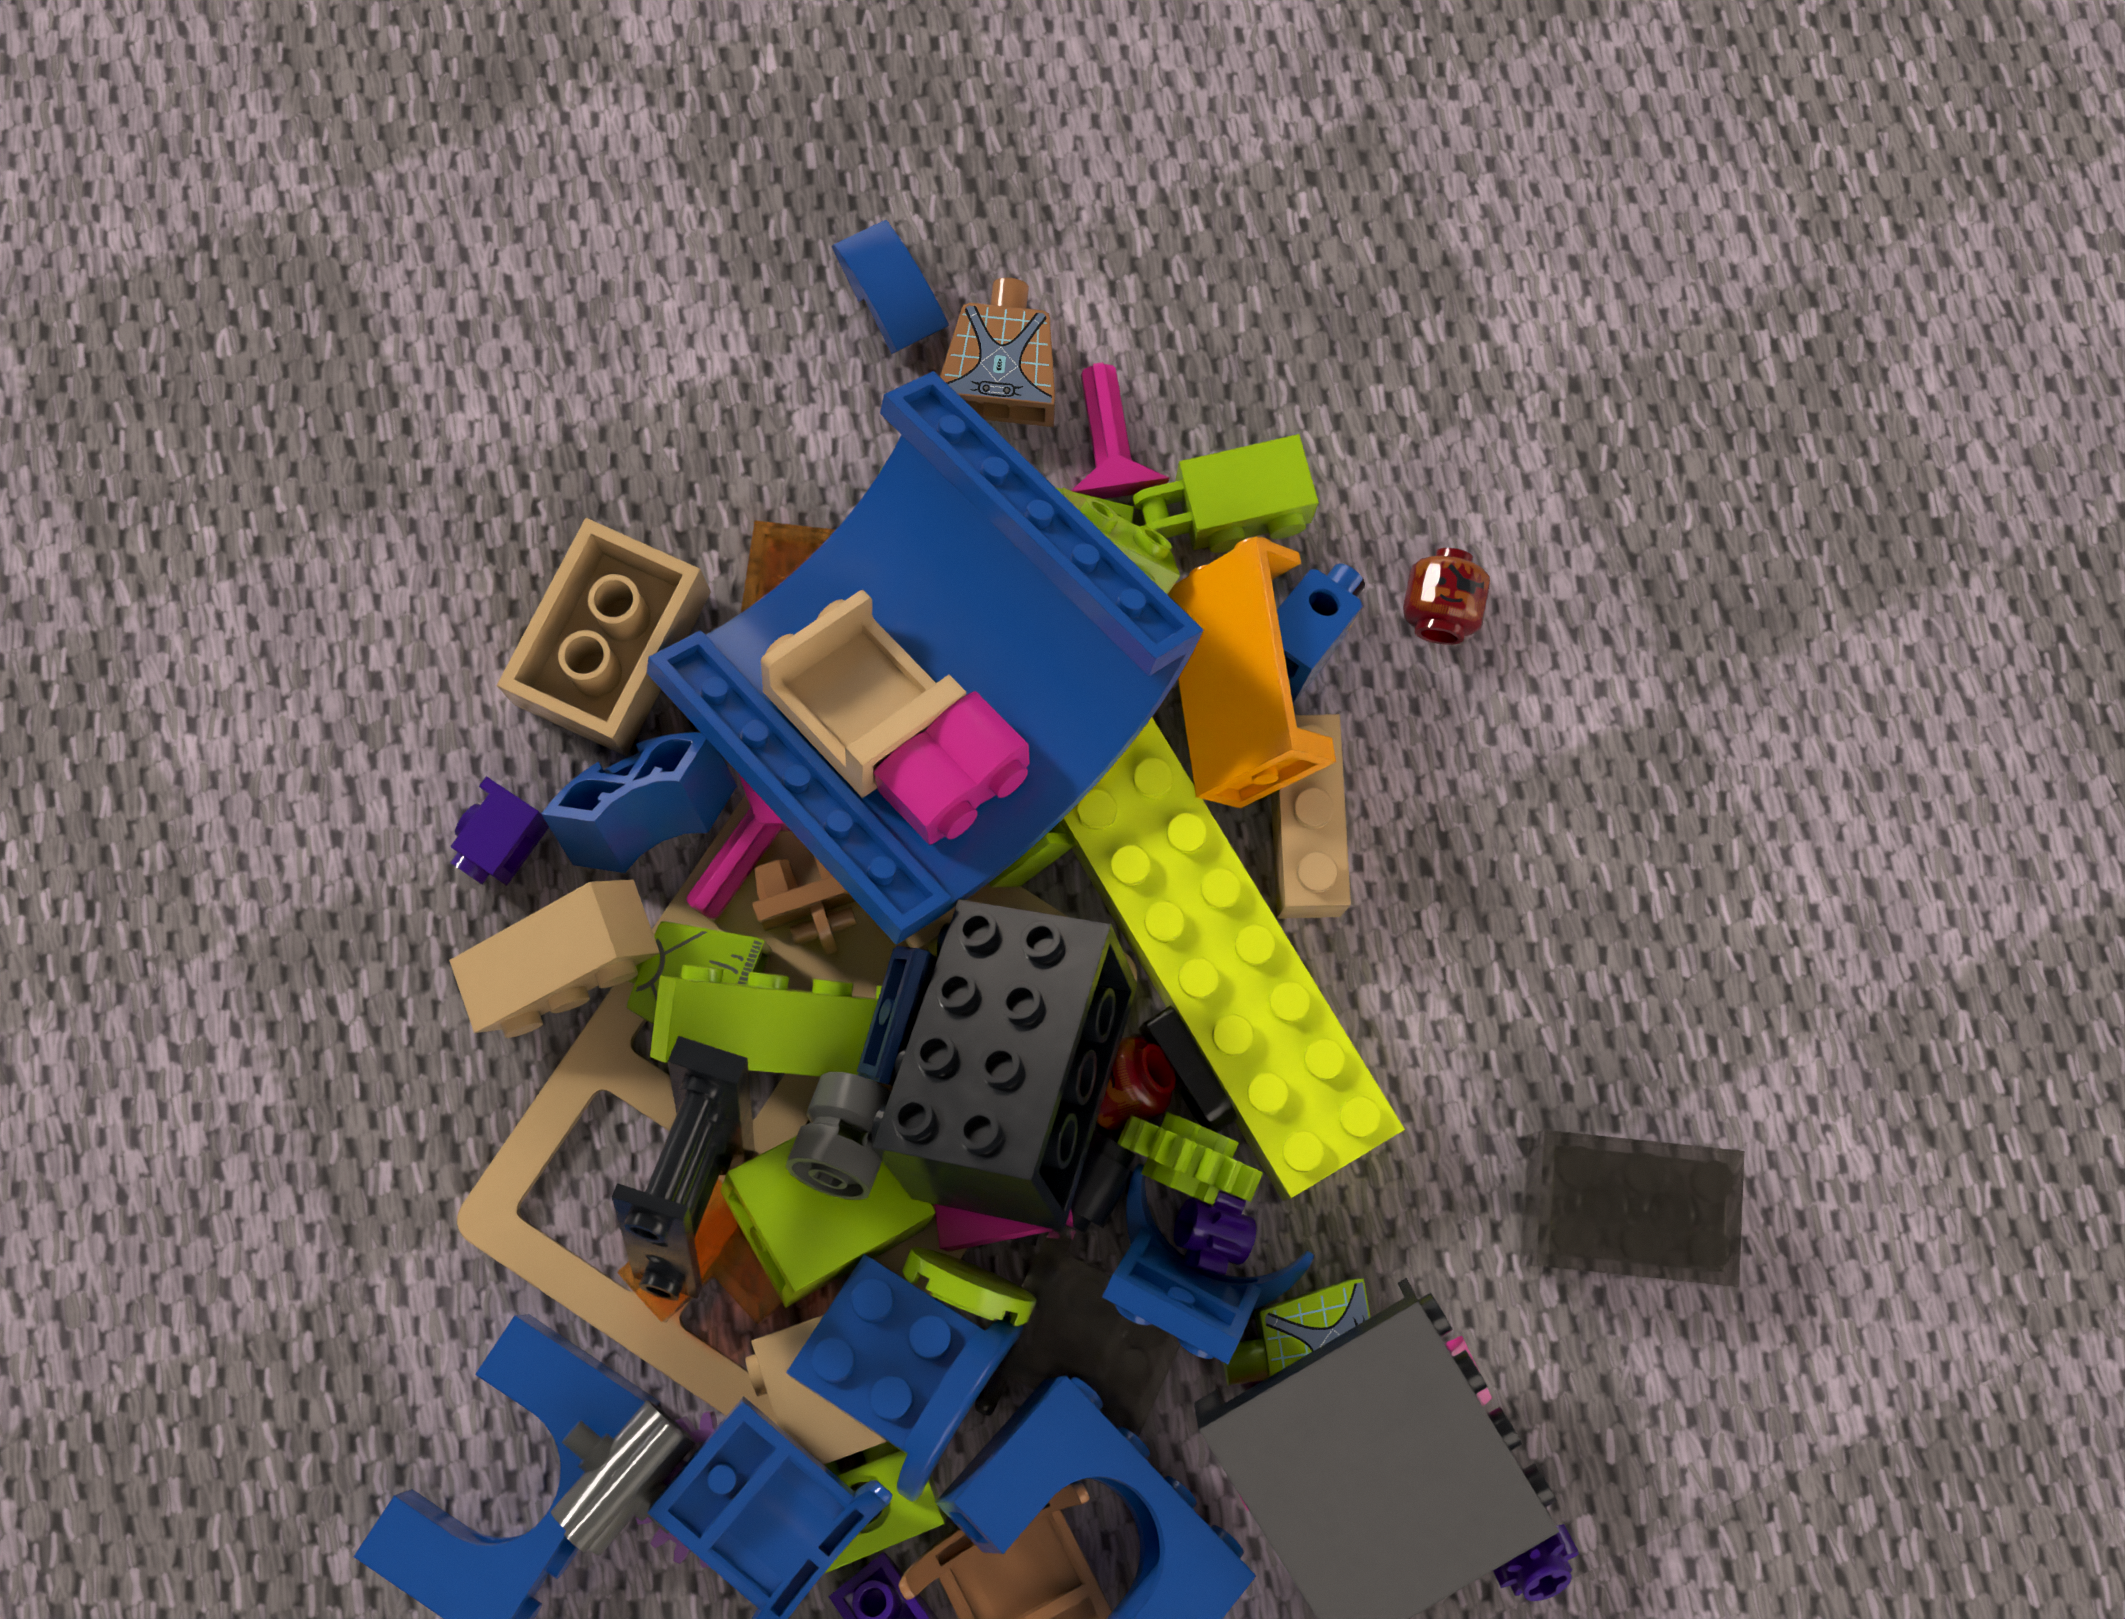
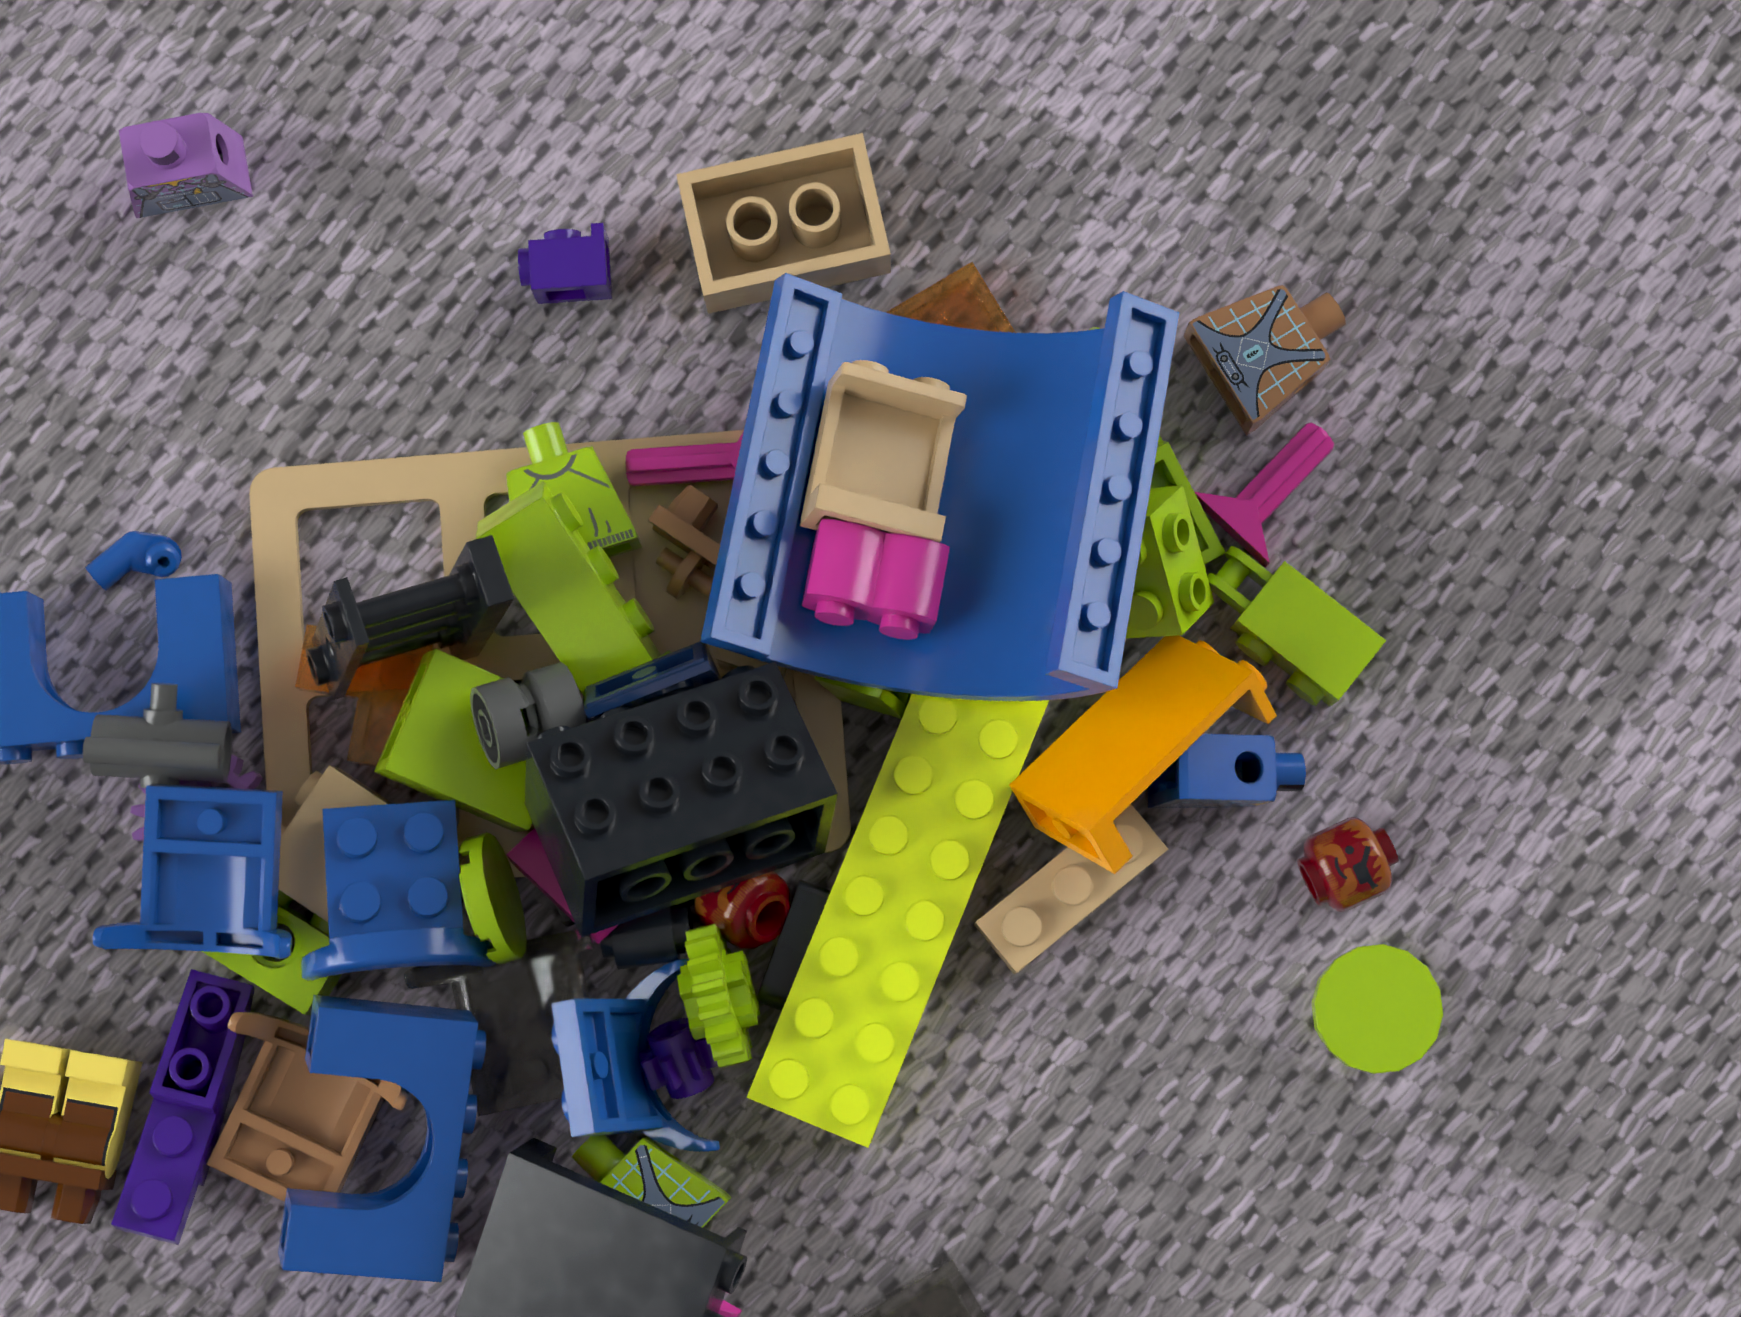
camera: 60 degrees right, 5 degrees up
(145, 1086) = (178, 164): none -> medium lavender torso
(440, 1374) = (135, 552): none -> blue arm
(555, 958) = (502, 390): tan brick -> none
(625, 810) = (674, 354): blue brick -> none
(891, 285) = (1257, 212): blue slope -> none
(1573, 660) = (1377, 1008): none -> lime tile

